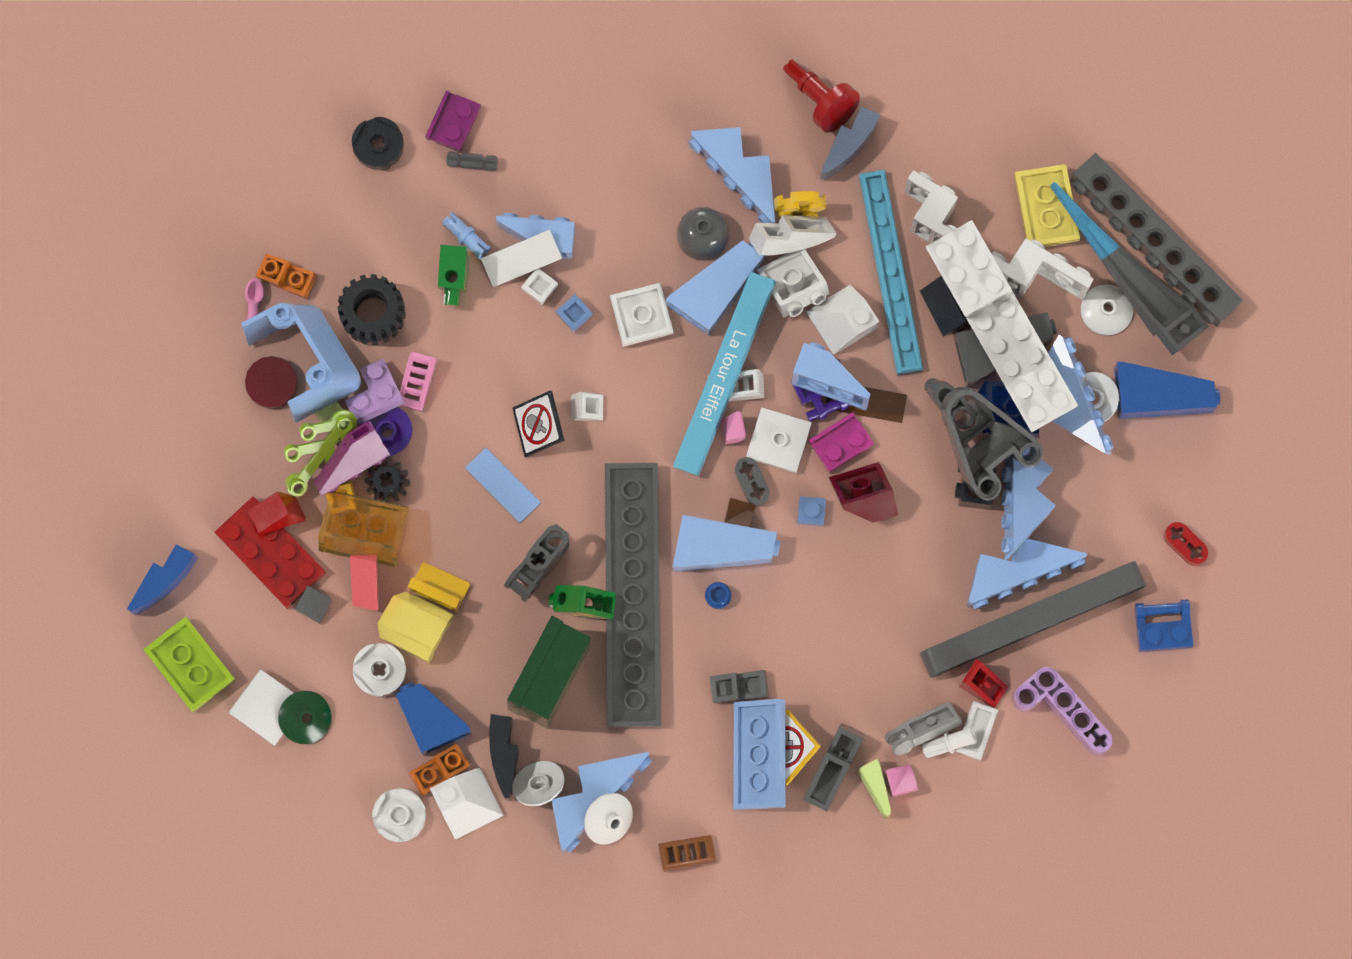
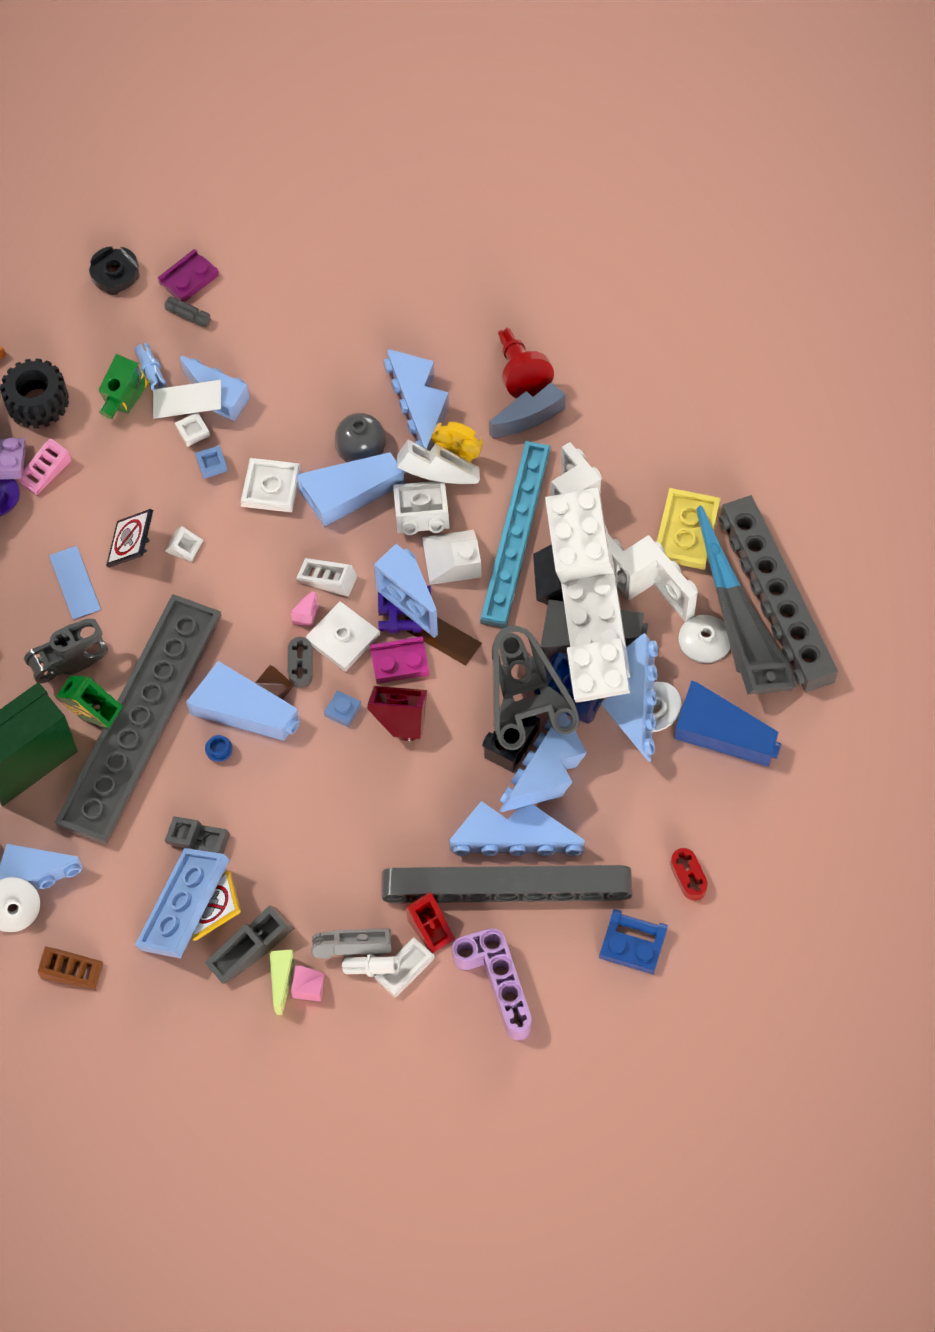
camera: 25 degrees right, 15 degrees down
(724, 374) = (318, 559): medium azure tile -> none

